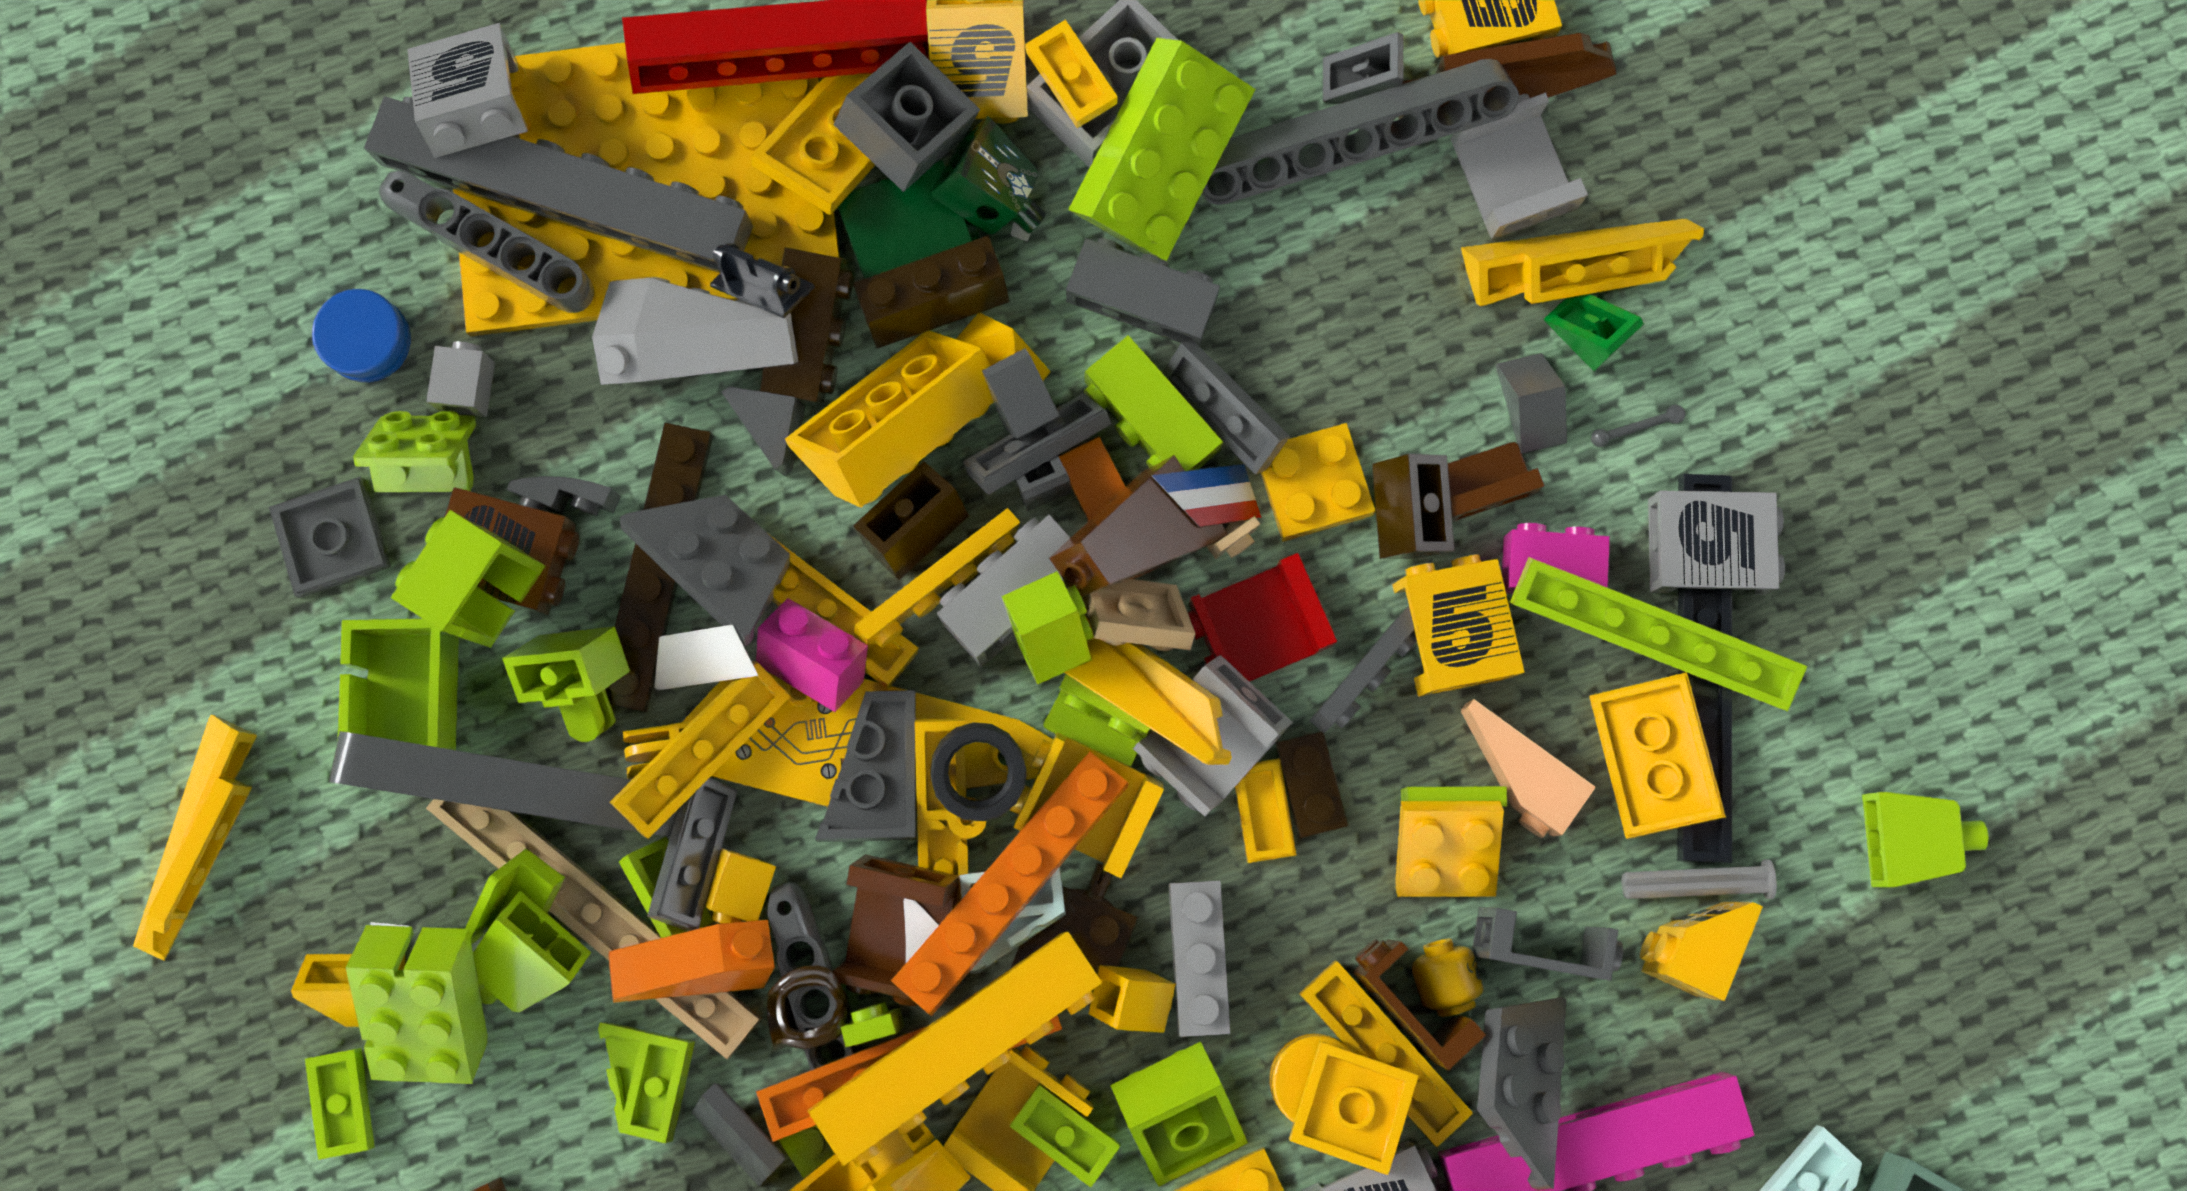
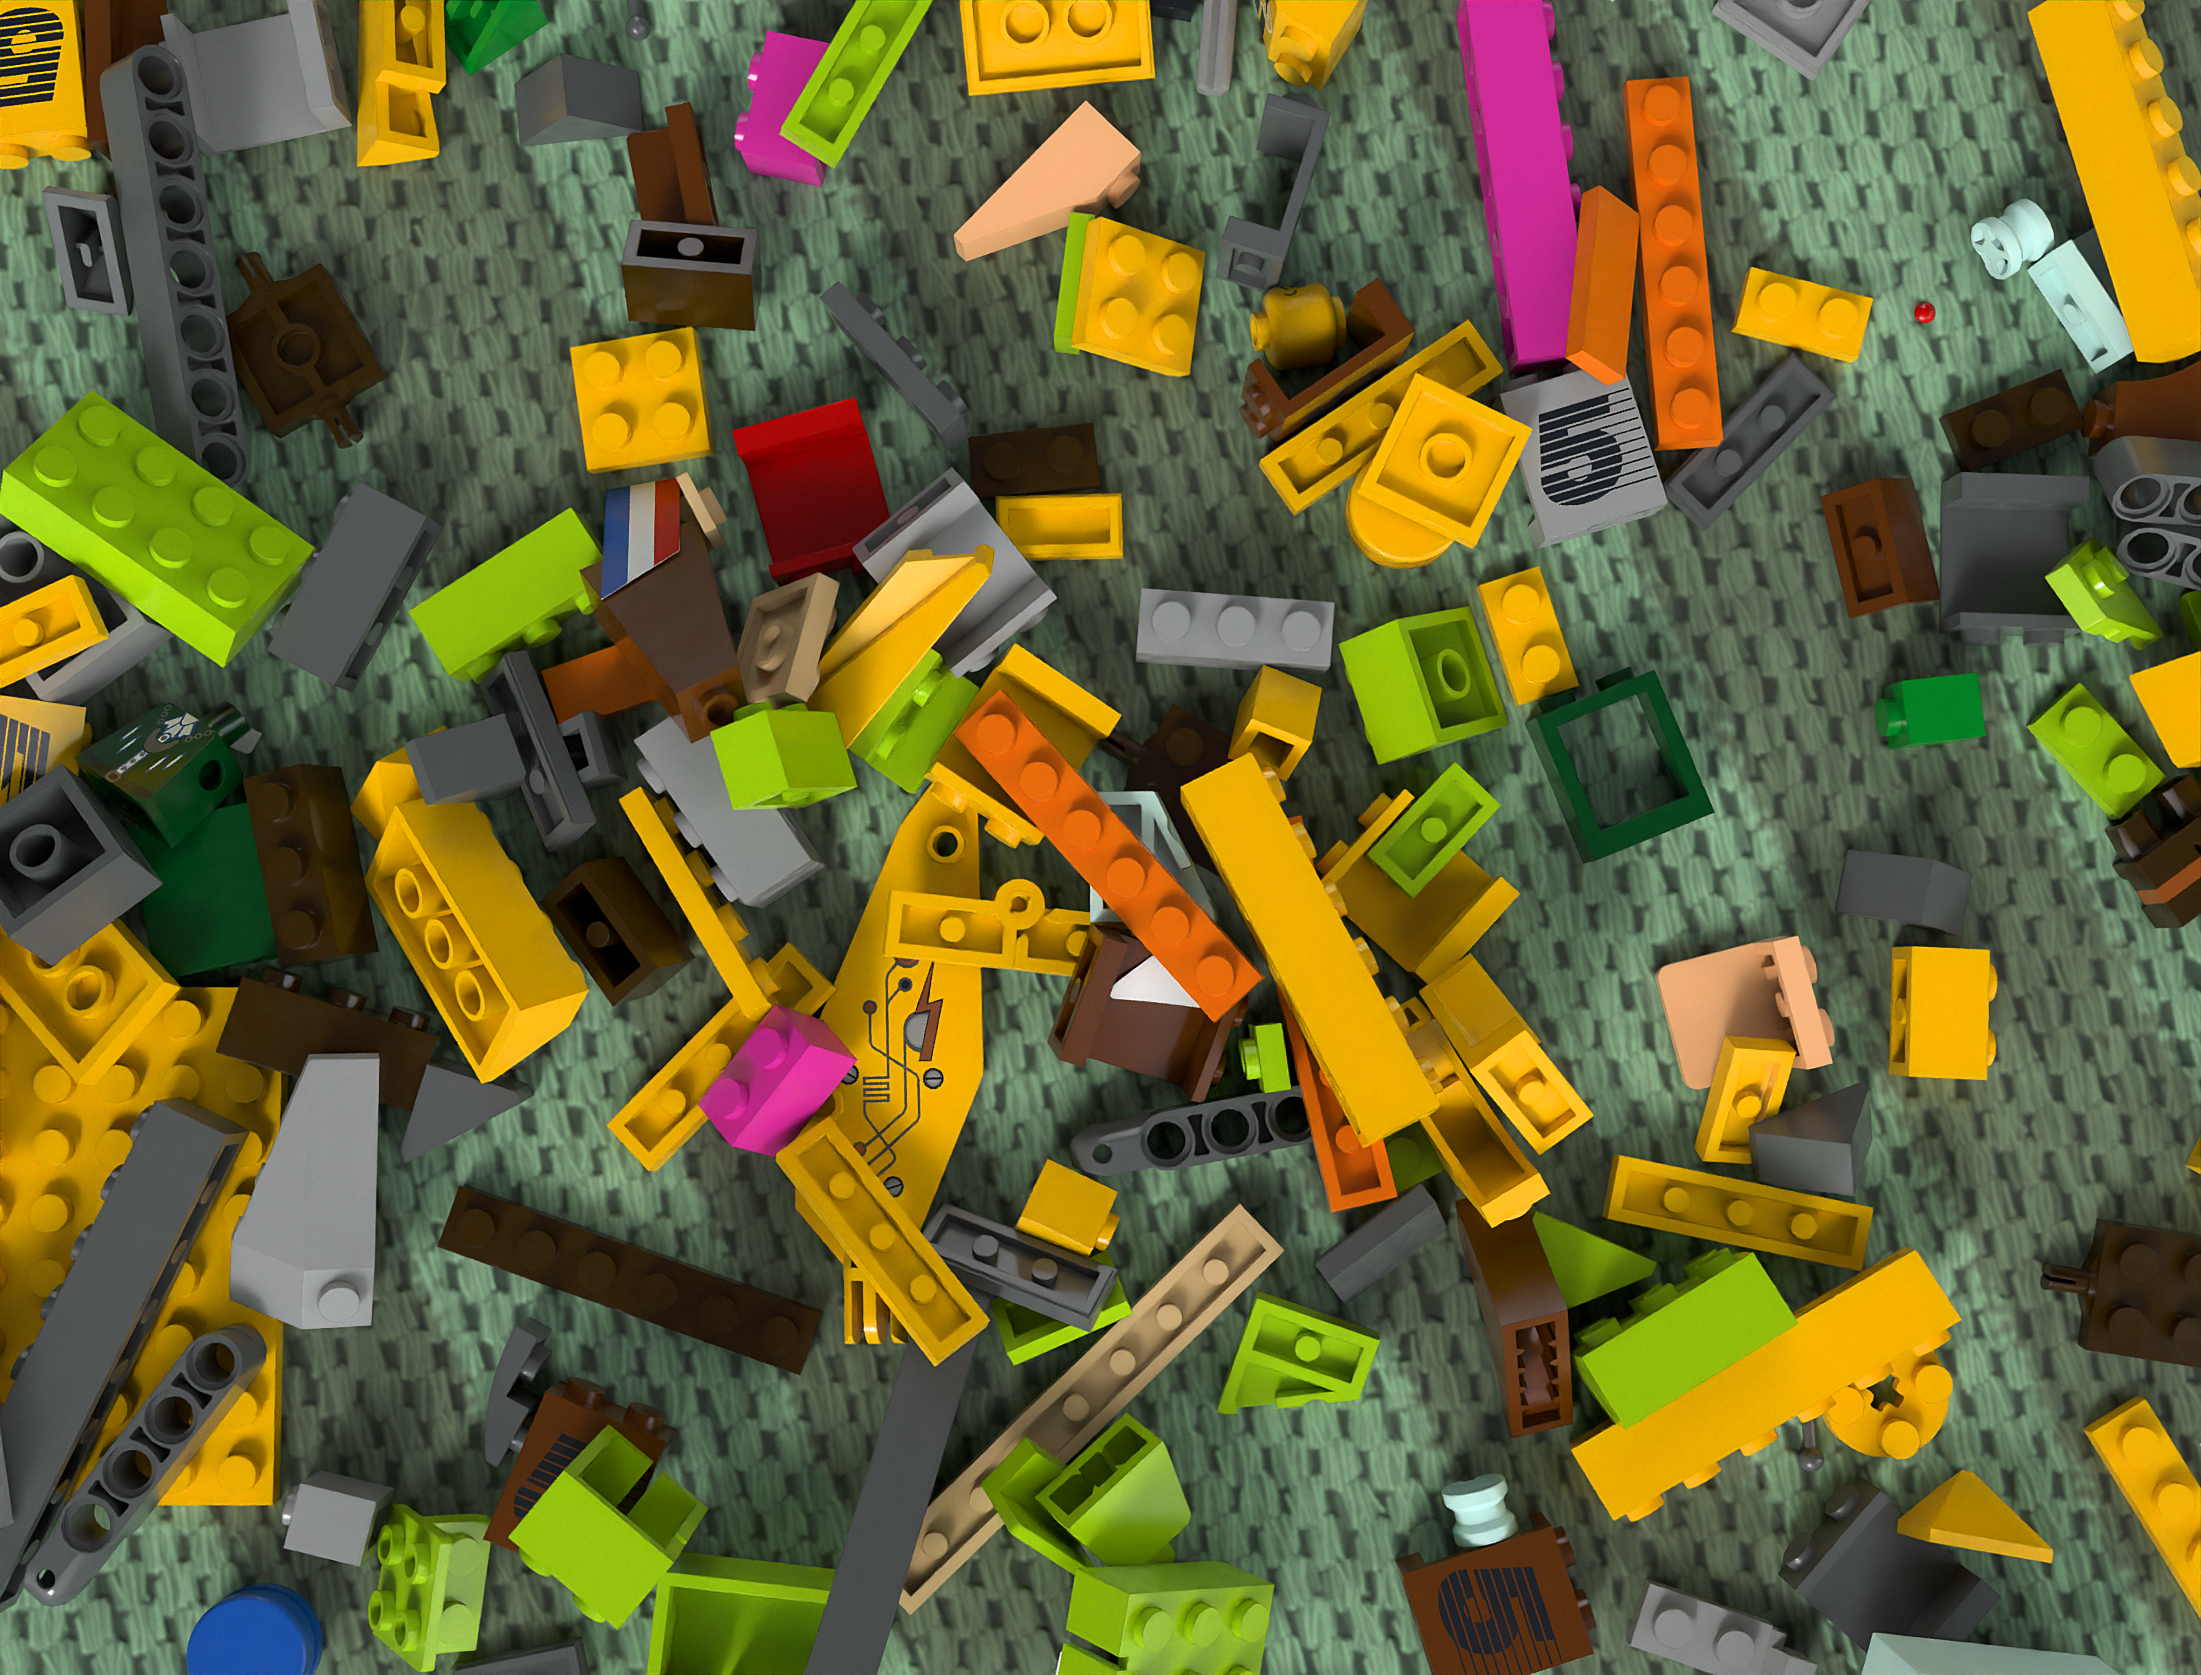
camera: 80 degrees left, 5 degrees up
(572, 674) = (758, 1401): lime brick -> none
(694, 963) = (1157, 1277): orange slope -> none
(701, 658) = (761, 1226): white sticker -> none
(714, 557) = (628, 1195): dark grey wing -> none
(758, 281) = (258, 1089): black hinge -> none
(781, 1018) = (1242, 1174): dark brown piece -> none
(878, 775) = (948, 1012): dark grey wing -> none
(987, 808) = (1009, 871): black tyre -> none
(1225, 407) = (525, 496): dark grey plate -> none
(1314, 228) = (300, 350): none -> dark brown plate
(1461, 624) = (854, 237): yellow panel -> none
(1523, 1082) = (1440, 245): dark grey wing -> none

